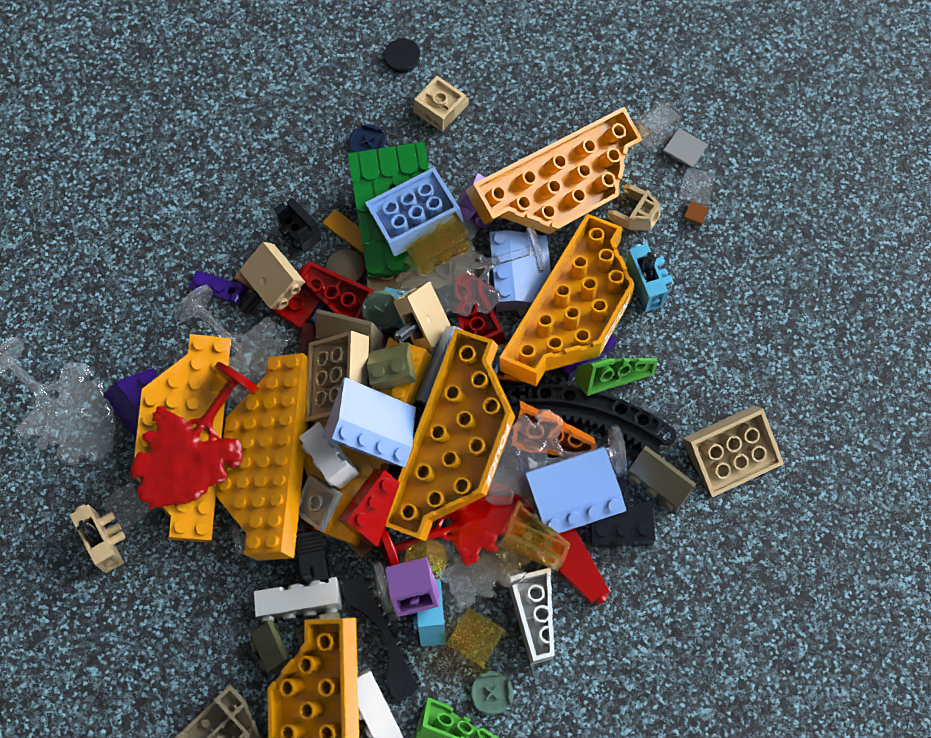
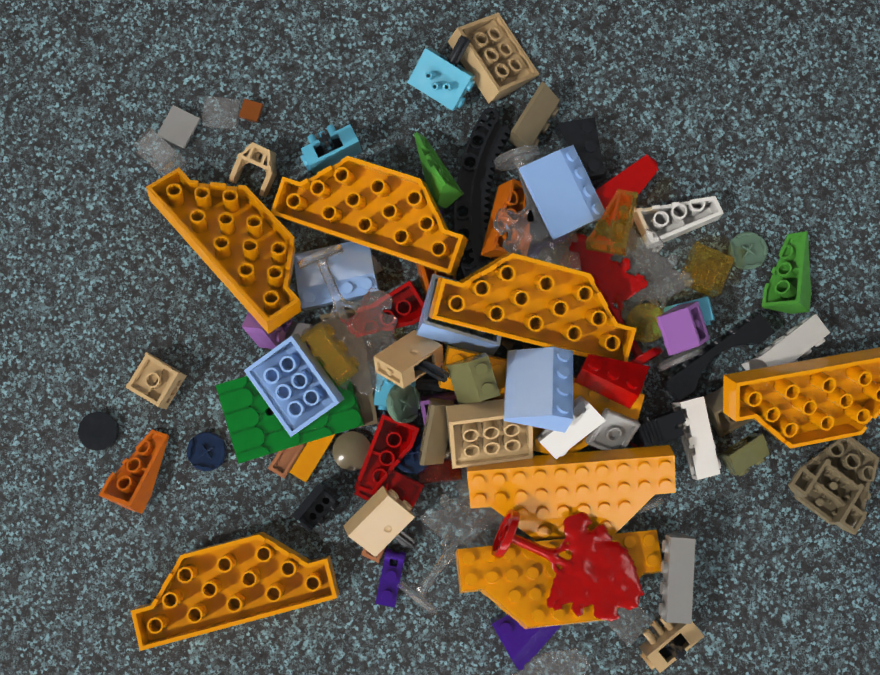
camera: 95 degrees left, 15 degrees up
(160, 545) = (677, 578): none -> light grey slope
(238, 150) = (231, 587): none -> light orange brick
(346, 206) = (285, 460): none -> nougat tile
(350, 78) = (136, 478): none -> orange wedge
(713, 393) = (442, 76): none -> medium azure piece

